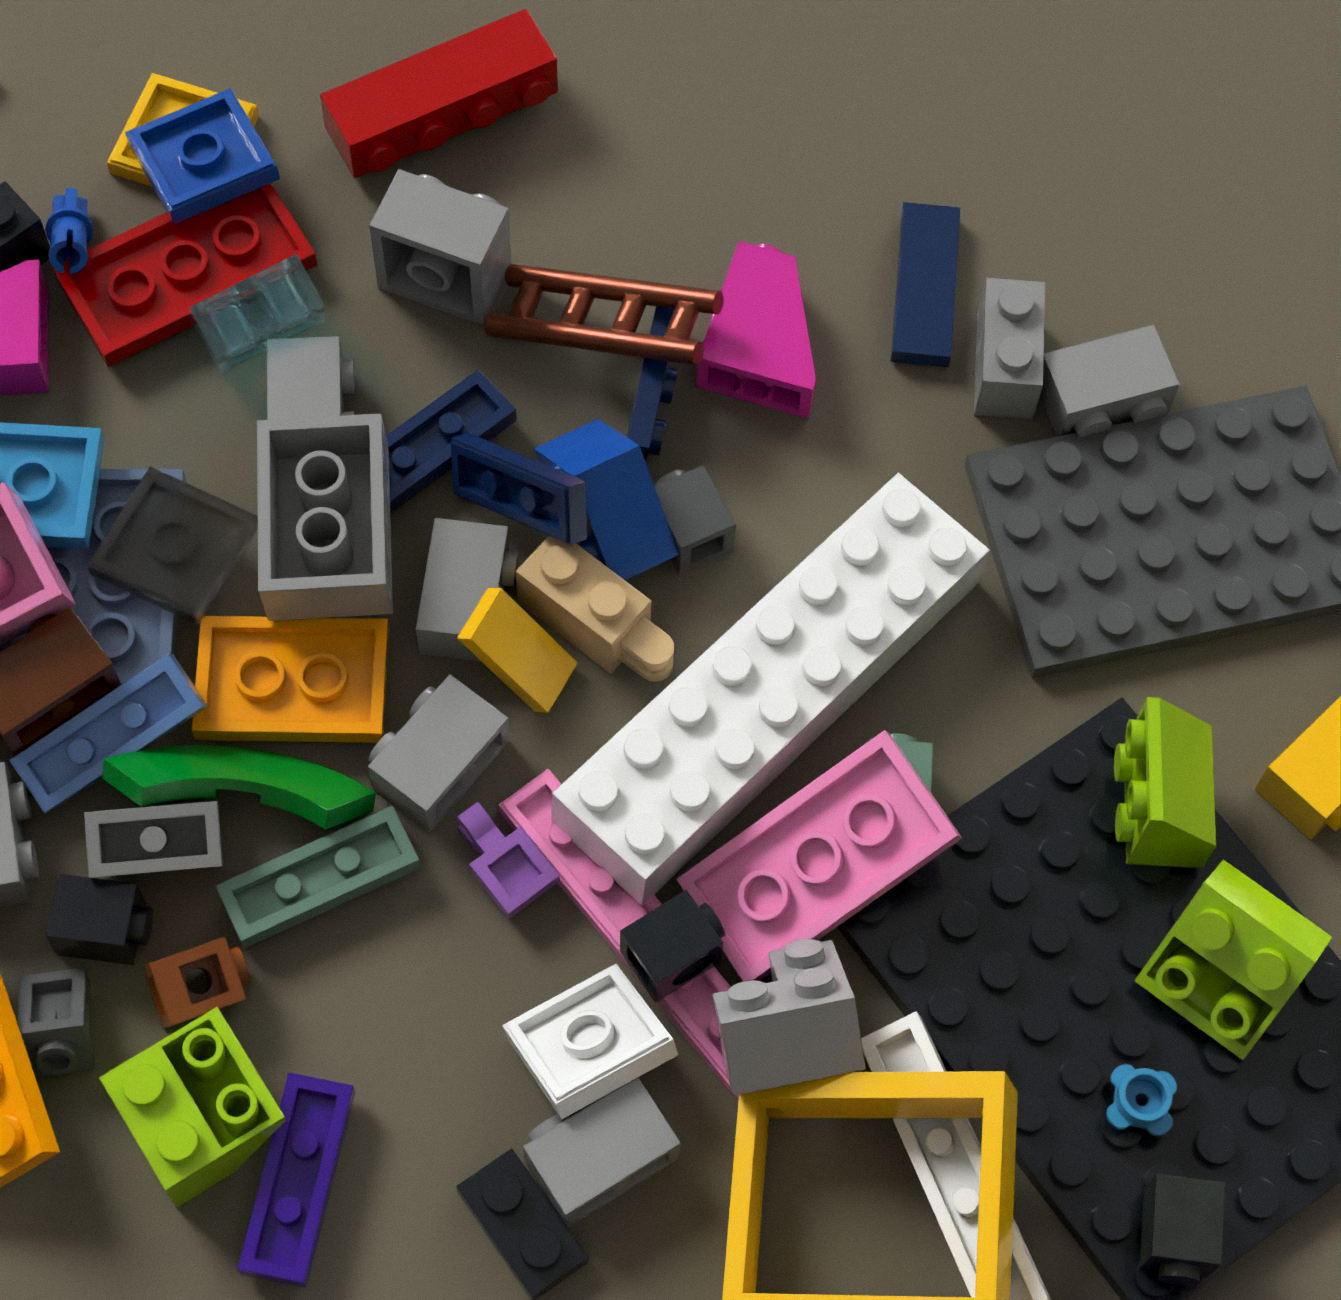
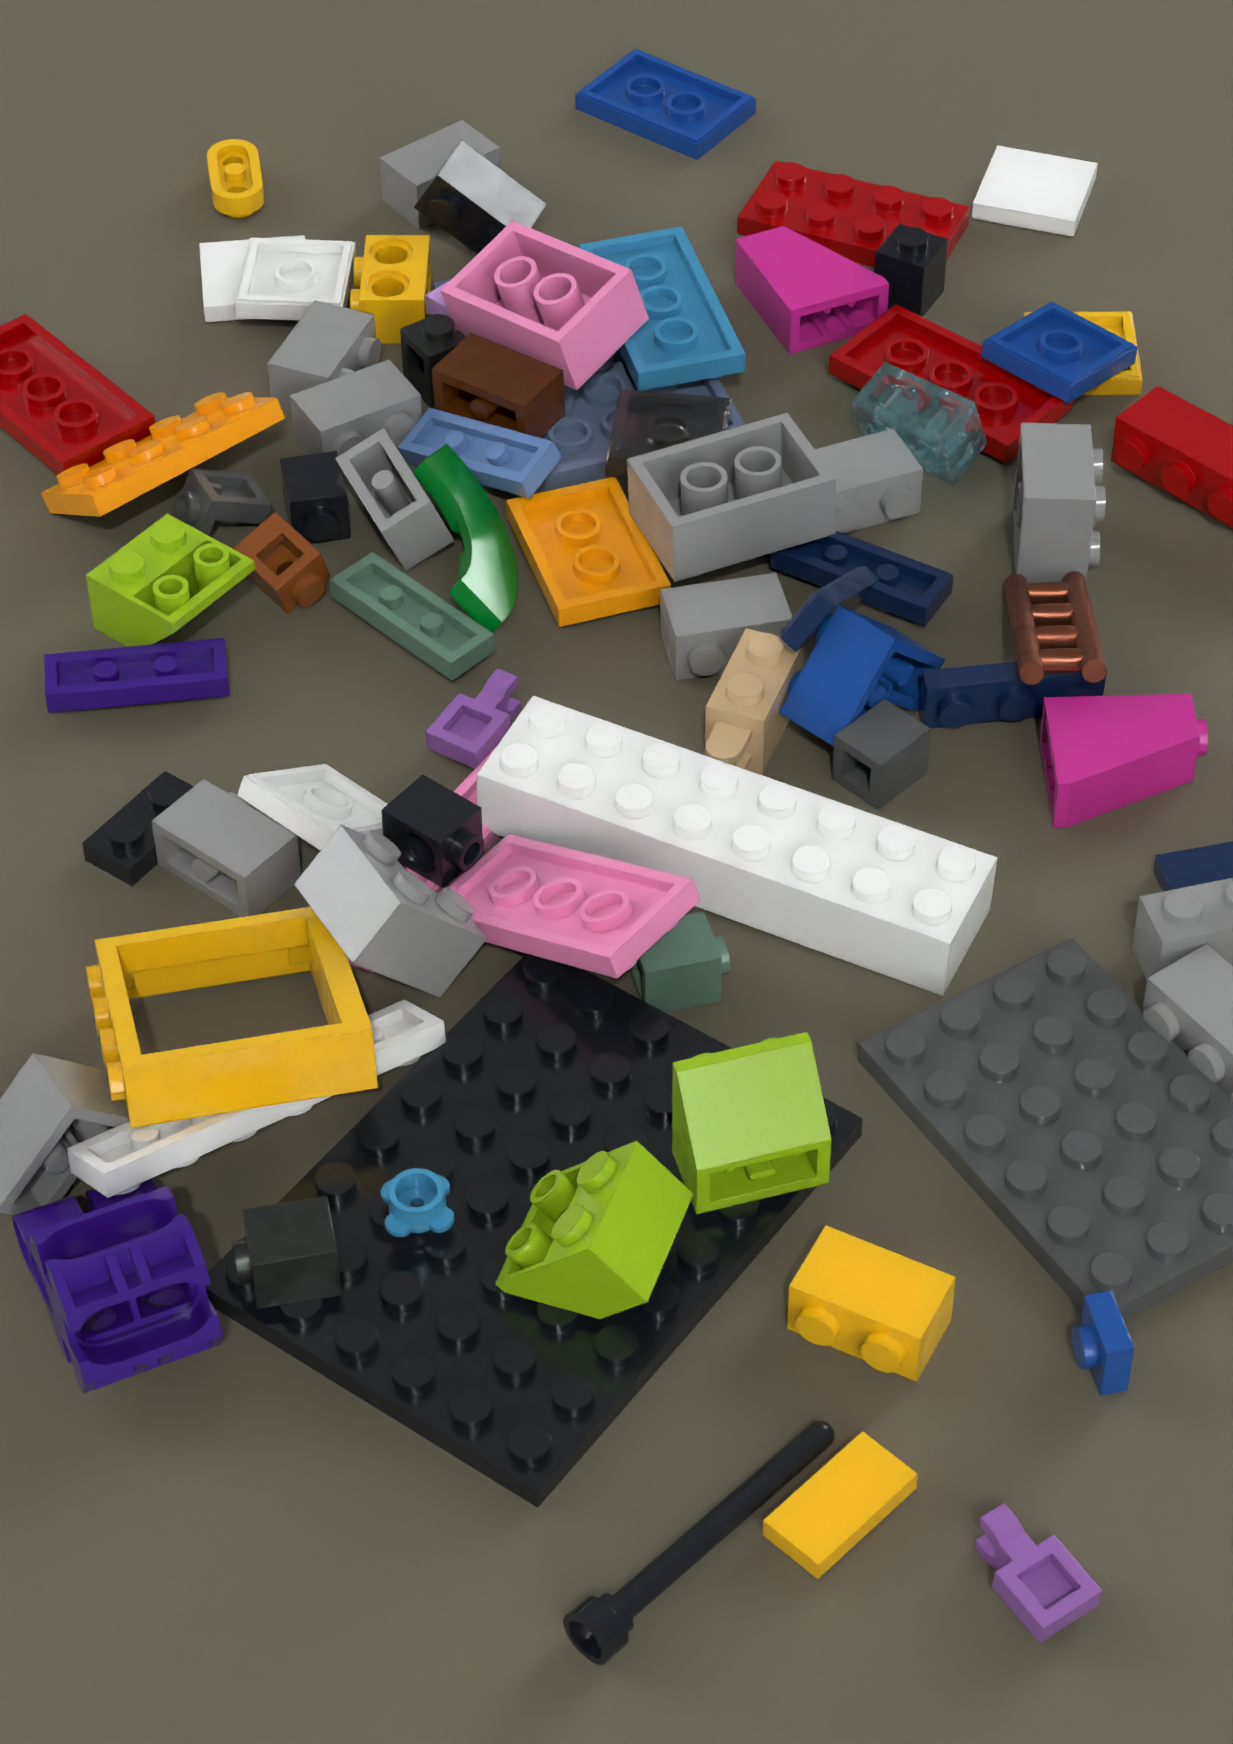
camera: 75 degrees right, 20 degrees down
(69, 231) = (934, 299): blue axle -> none
(438, 752) = (561, 652): light grey brick -> none
(517, 650) = (676, 662): yellow tile -> none

